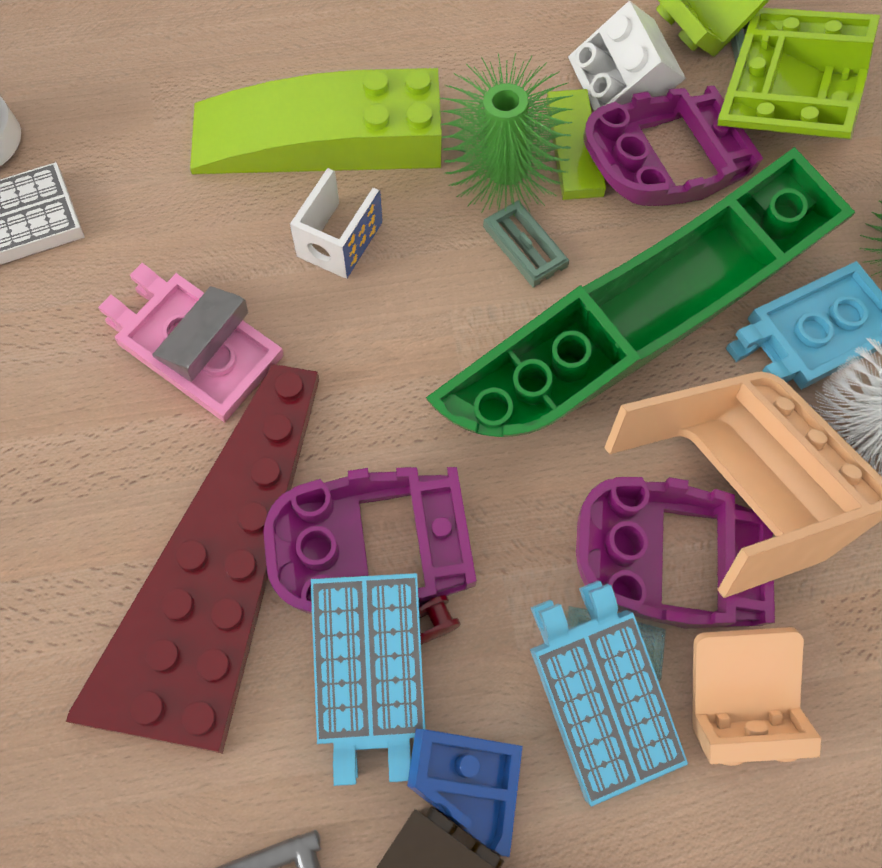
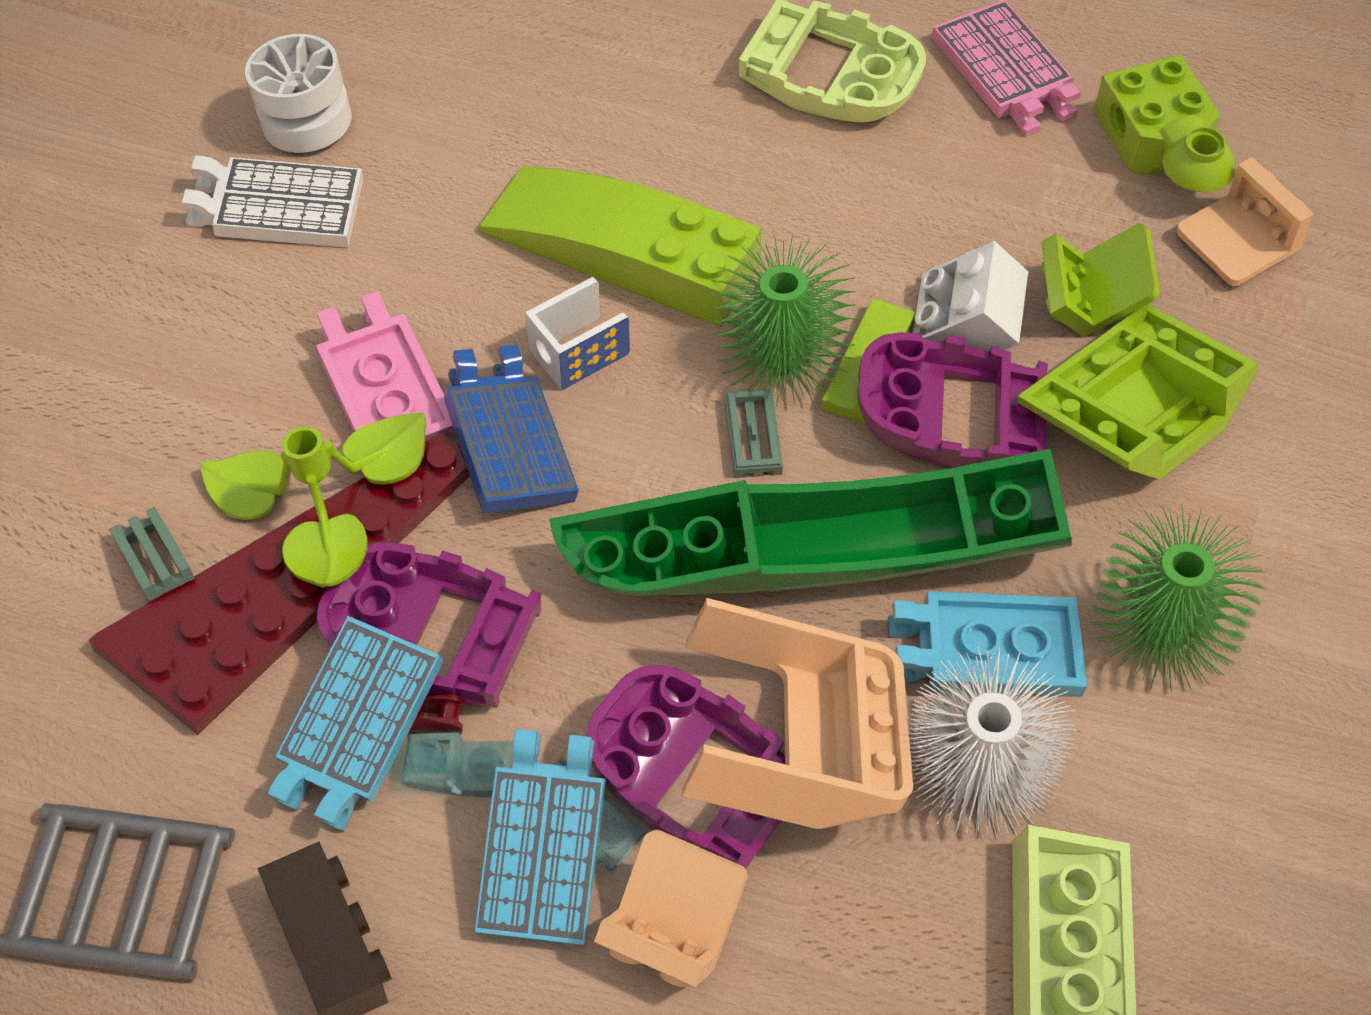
camera: 30 degrees right, 10 degrees down
(49, 587) = (139, 531): none -> sand green tile
(202, 332) = (392, 375): flat silver slope -> none
(240, 526) = (327, 549): none -> lime plant
(331, 338) = (507, 435): none -> blue tile
(469, 783) = (381, 853): blue wing -> none
(477, 656) = (453, 766): none -> clear light blue slope

